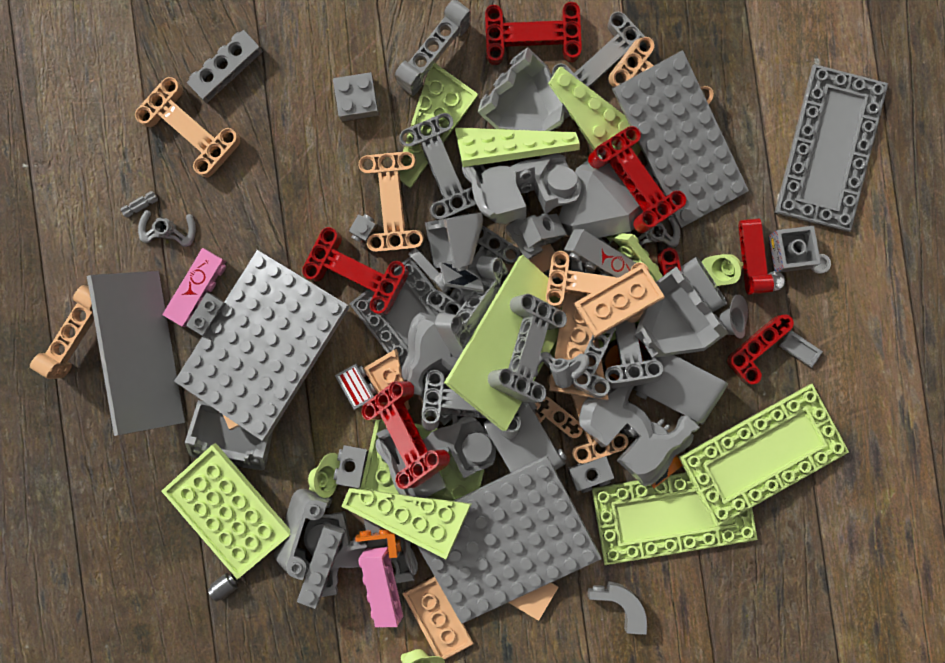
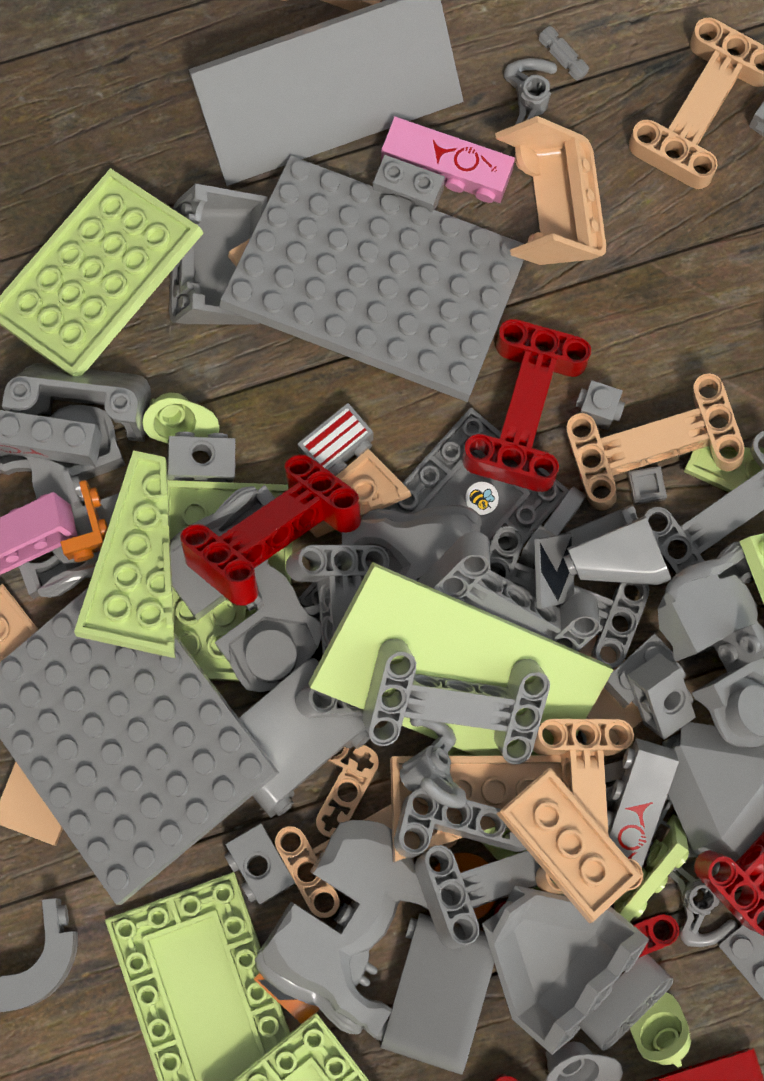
camera: 80 degrees right, 10 degrees down
(229, 222) = (564, 192): none -> light nougat windscreen
(405, 308) = (482, 497): none -> tile
(414, 210) = (647, 485): none -> light grey tile

